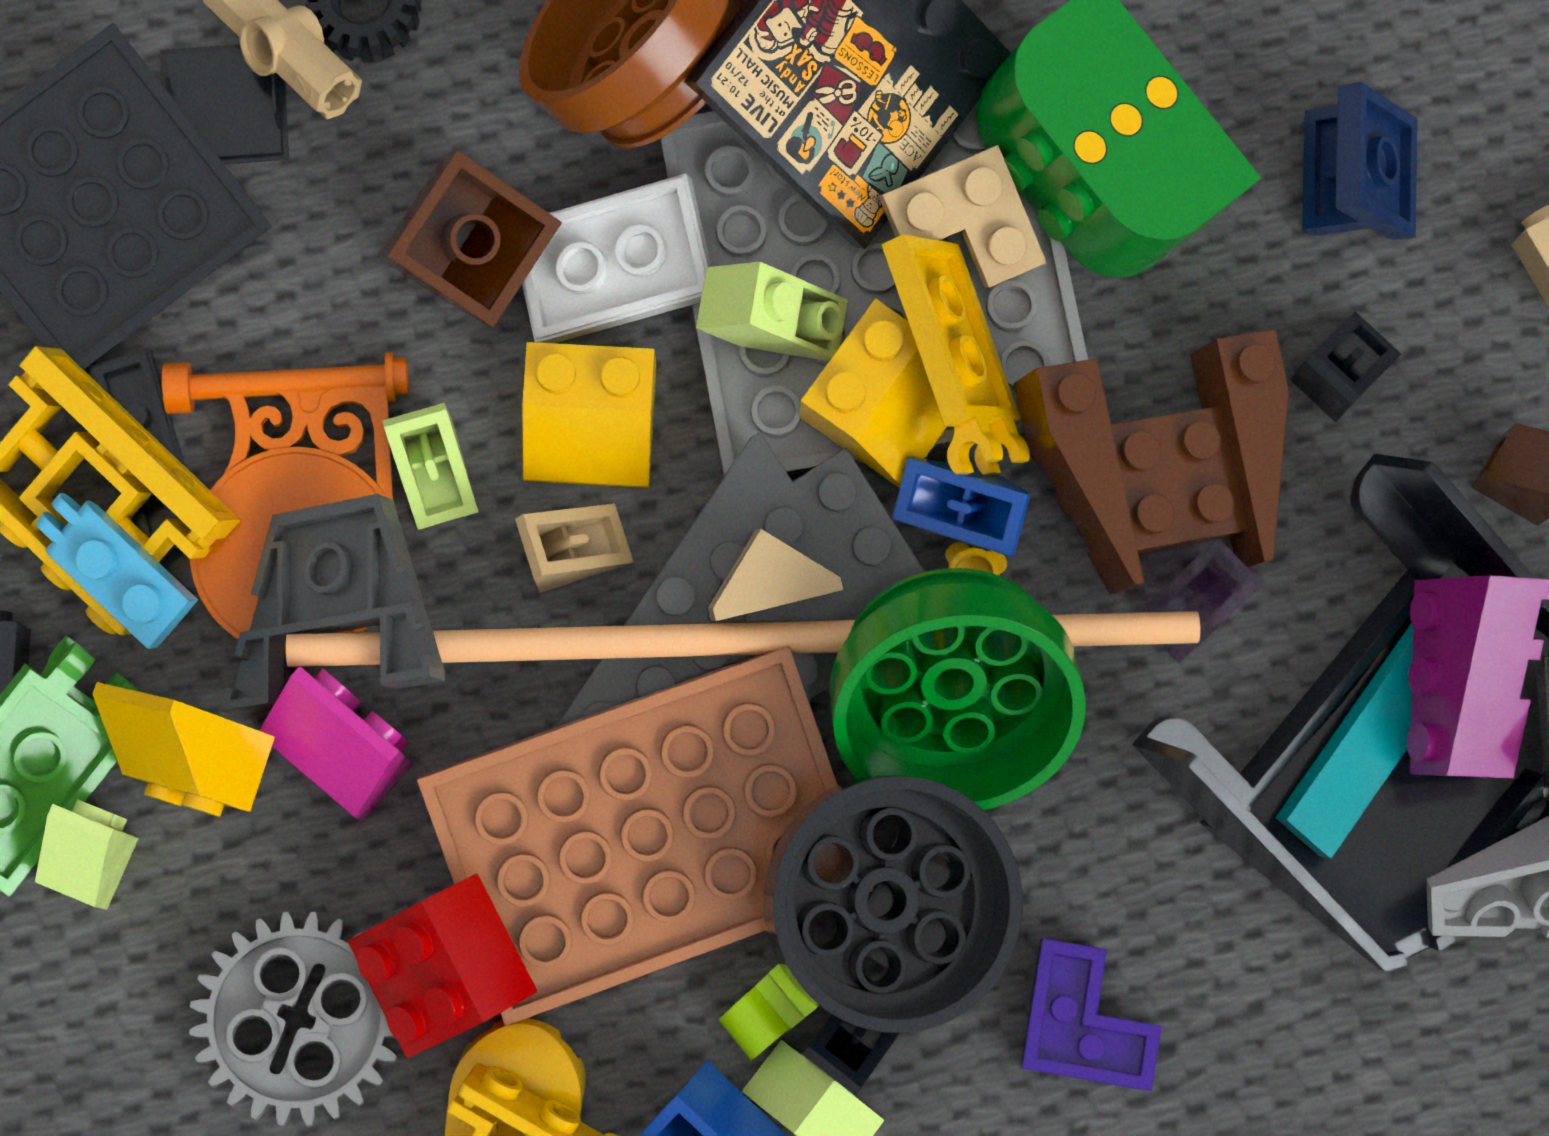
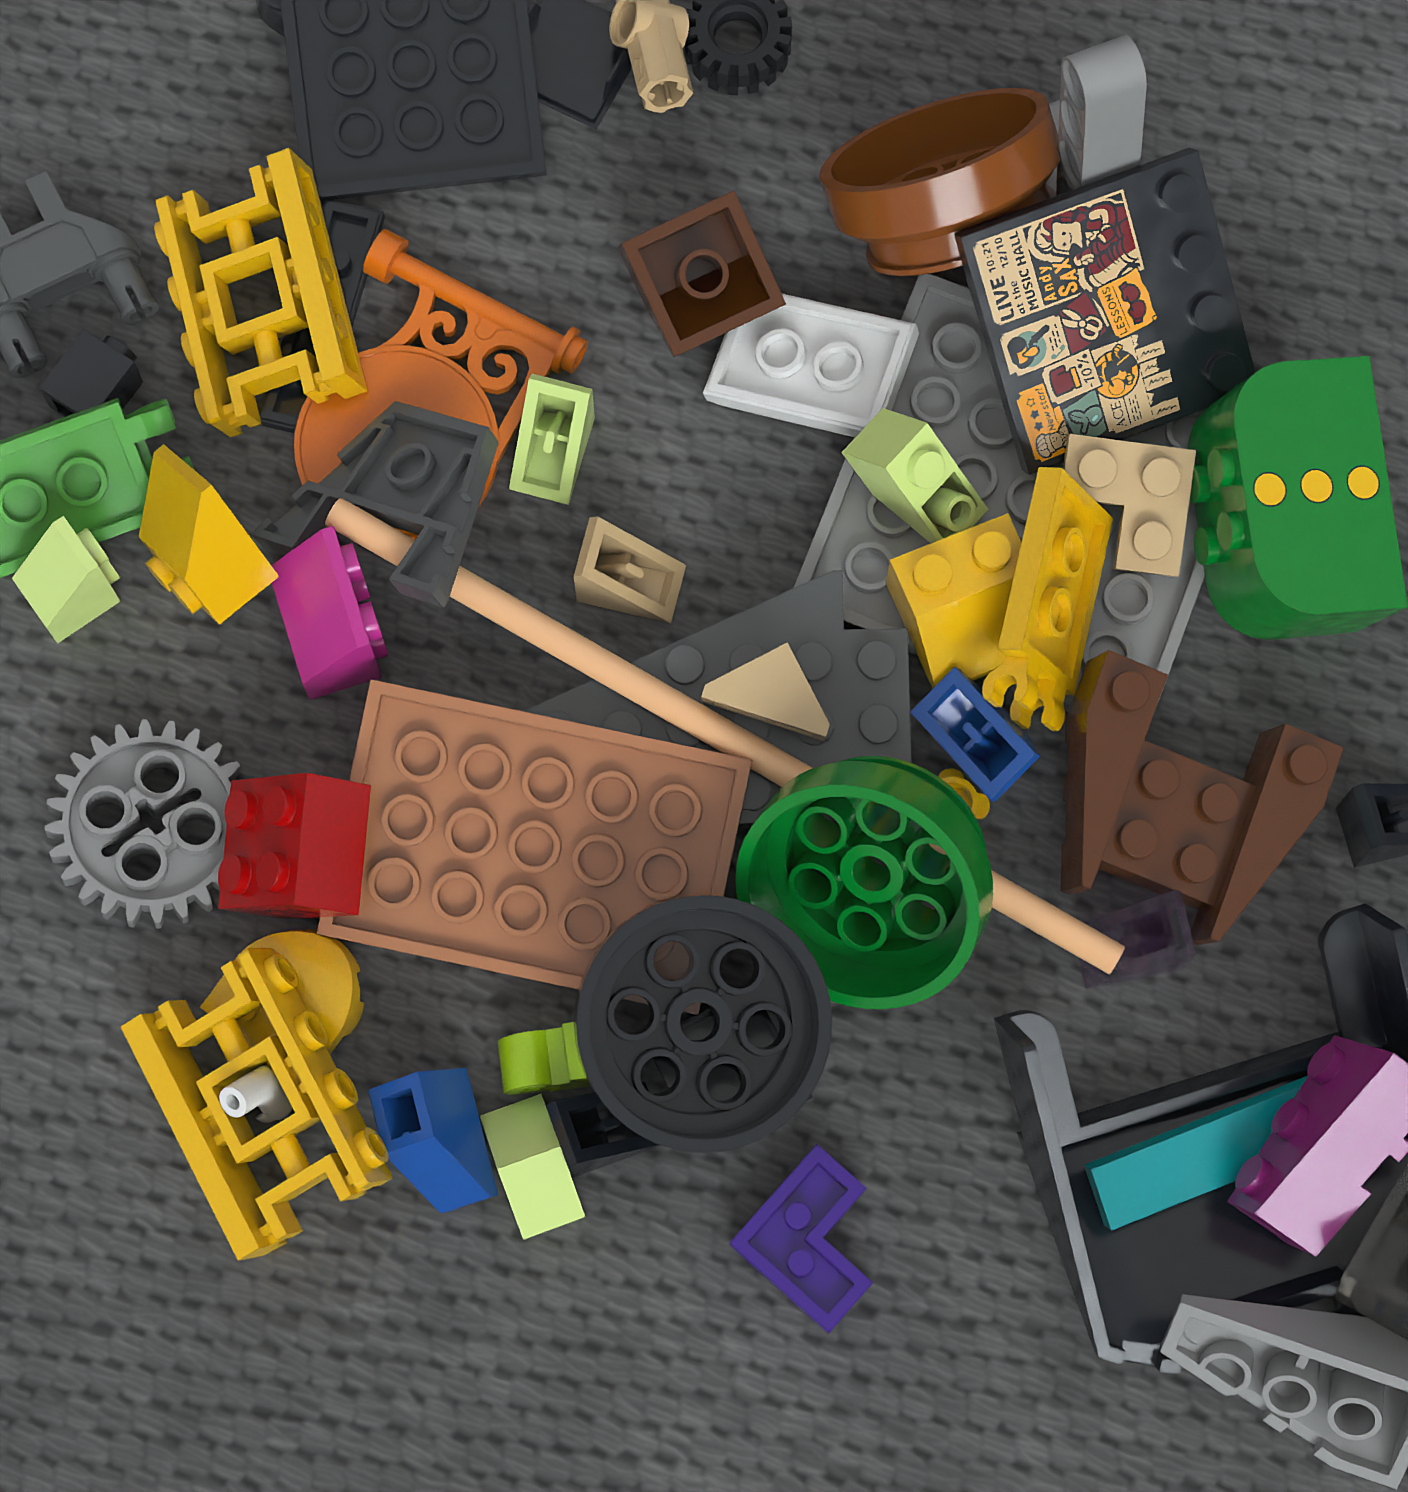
camera: 35 degrees right, 5 degrees down
(115, 570) = (238, 367): medium azure hinge -> none
(588, 414) = (709, 475): yellow slope -> none

